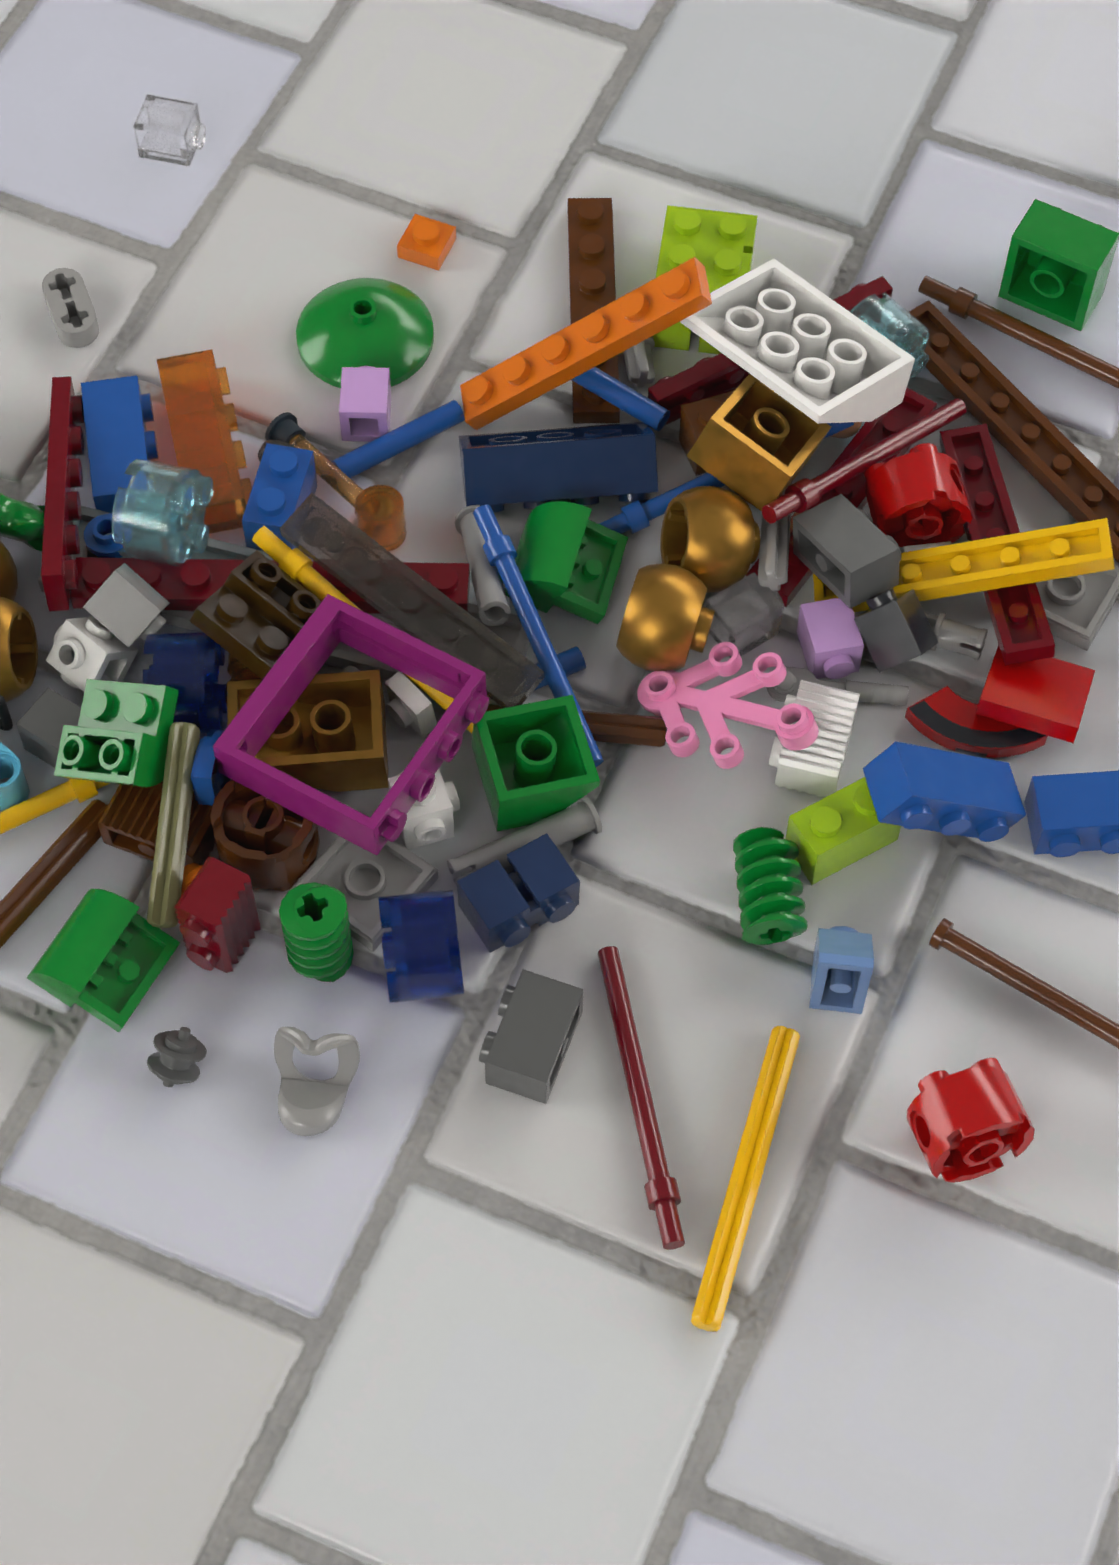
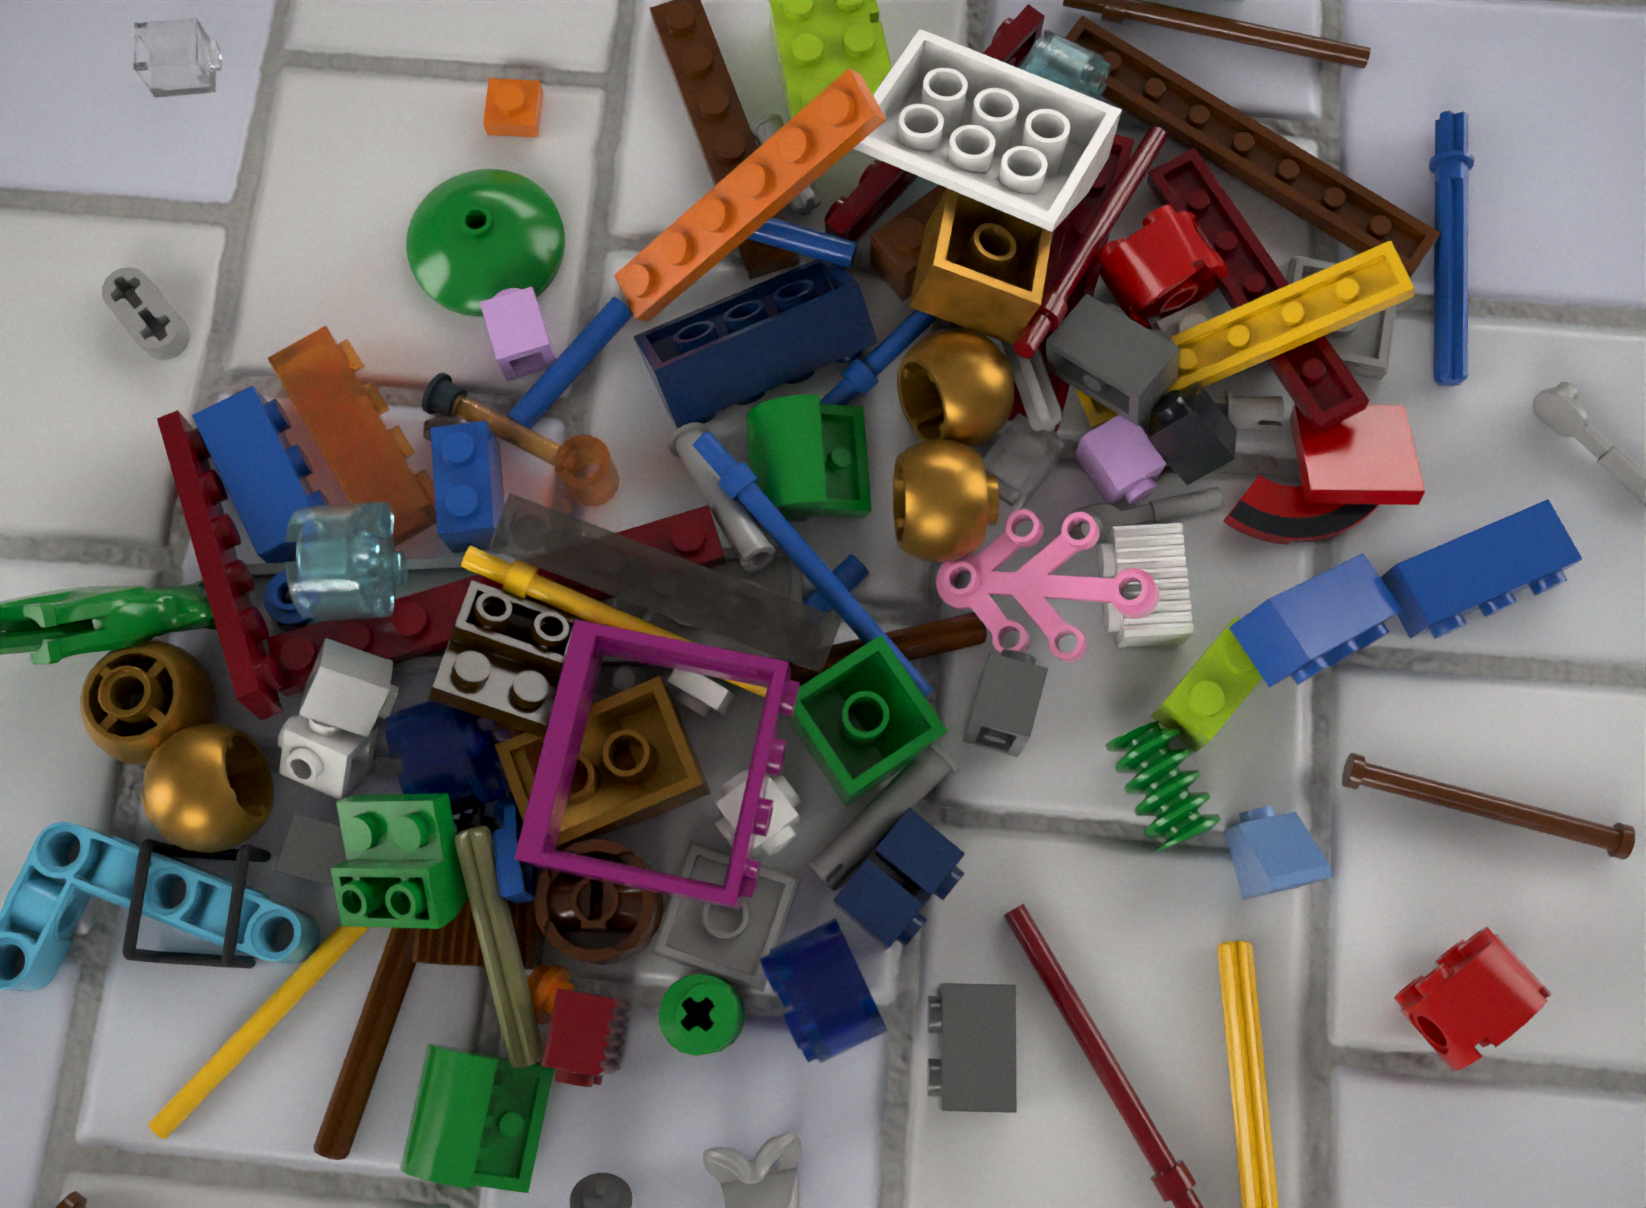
camera: 15 degrees left, 15 degrees up
(655, 781) = (1005, 702): none -> dark grey brick

